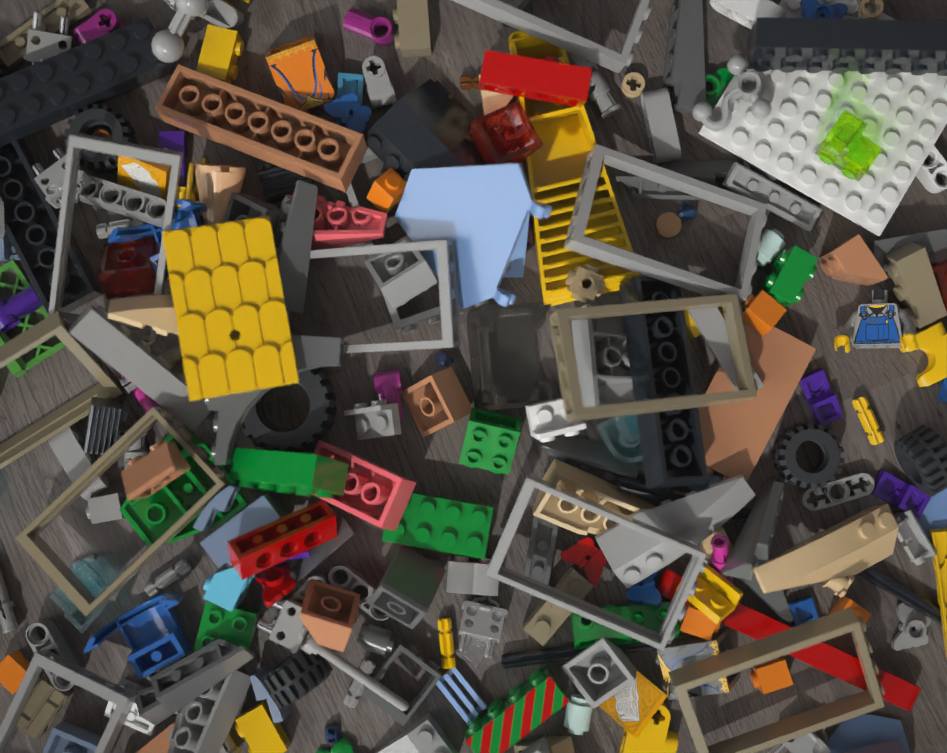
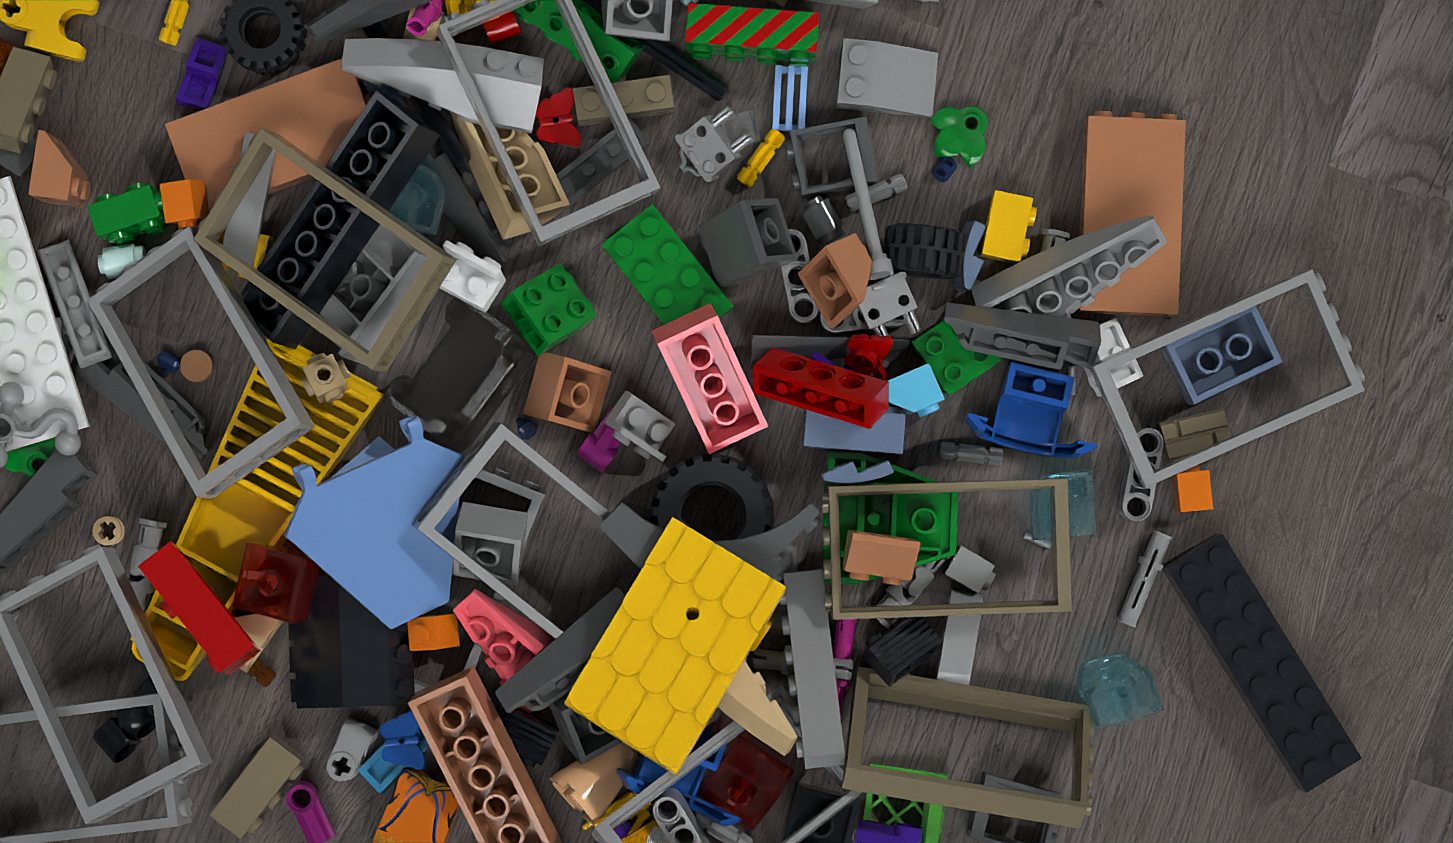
camera: 140 degrees left, 0 degrees up
(288, 472) = (761, 445): green brick -> none
(470, 577) = (681, 199): light grey brick -> none
(647, 594) = (530, 37): blue animal -> none
(660, 125) = (118, 467): light grey beam -> none
(878, 326) = (87, 93): torso -> none

